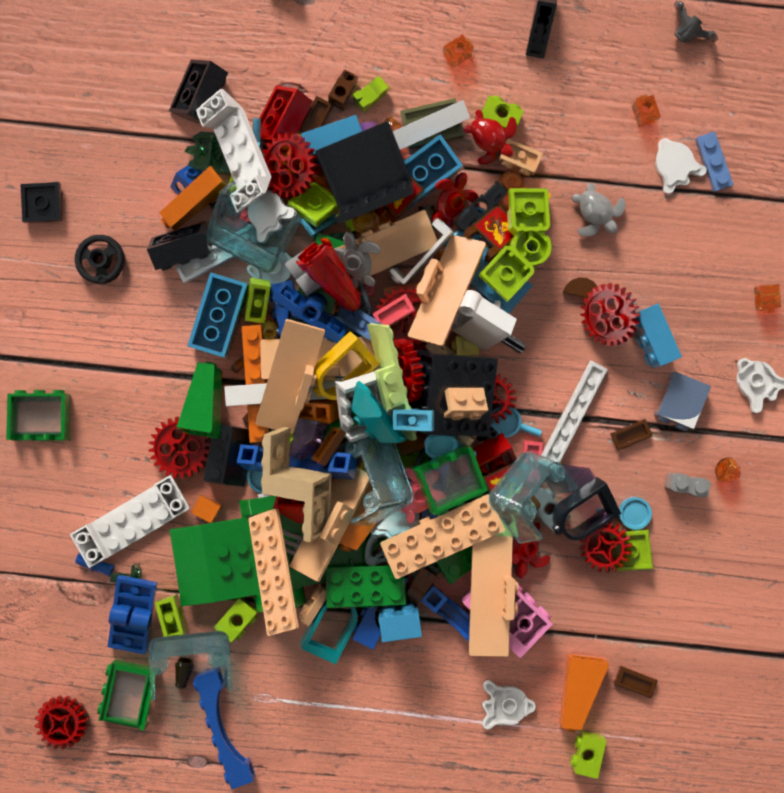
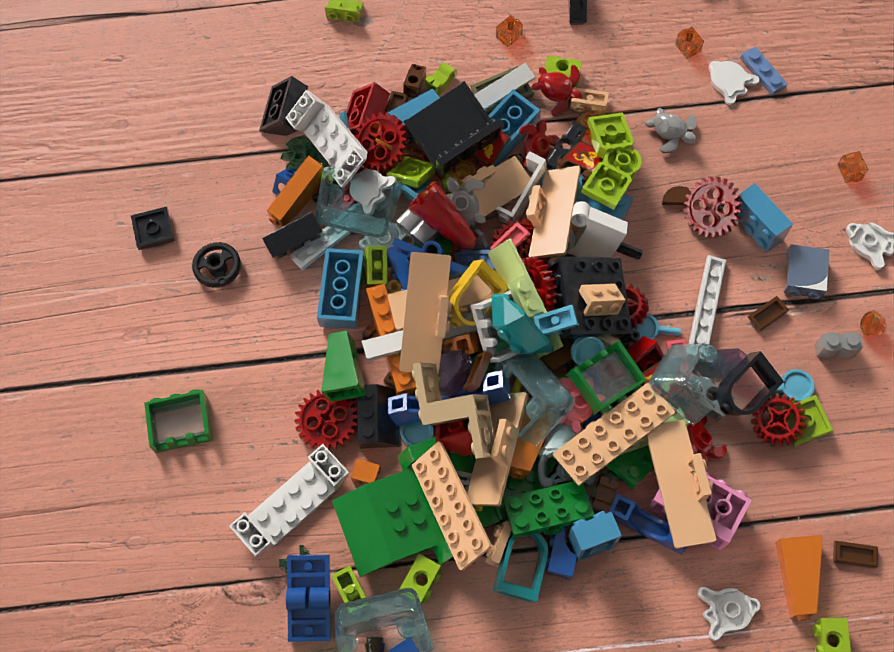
camera: 10 degrees left, 20 degrees down
(101, 567) = (265, 558): blue axle -> none

